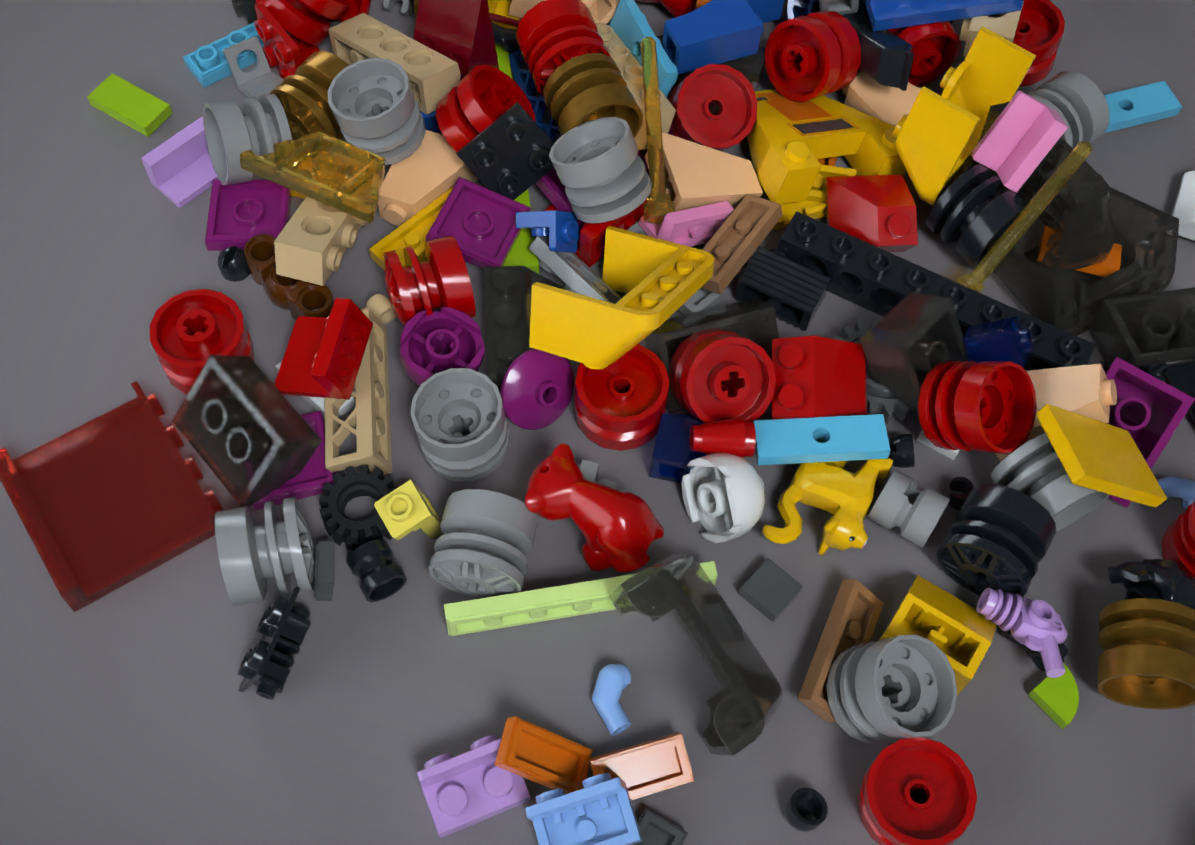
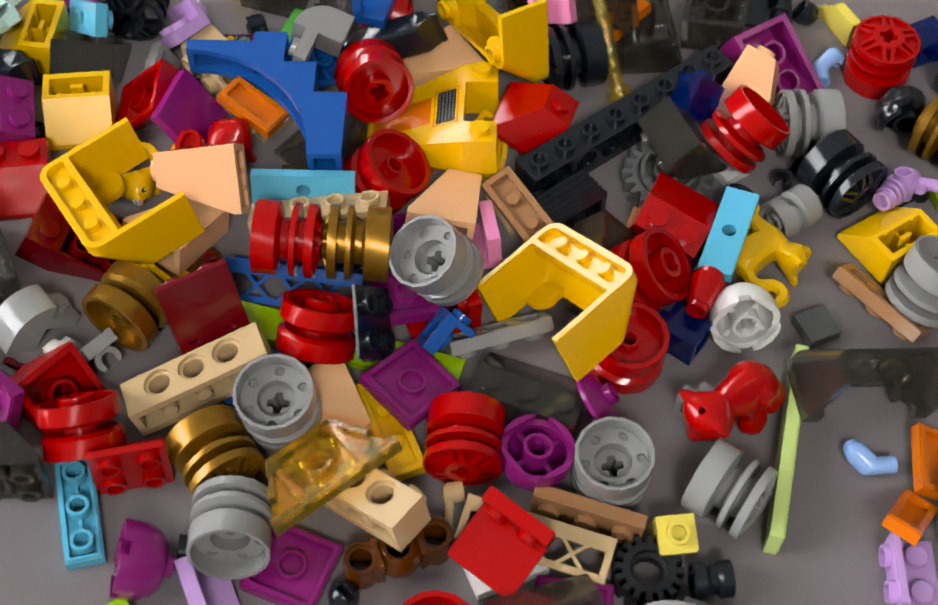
camera: 65 degrees left, 5 degrees down
(188, 90) = (140, 561): none -> magenta cylinder
(258, 80) = (143, 504): light grey bracket -> none
(401, 428) = (588, 514): none -> medium nougat plate
(658, 202) = (385, 198): clear yellow piece -> none
(1100, 456) = (815, 81): yellow tile -> none

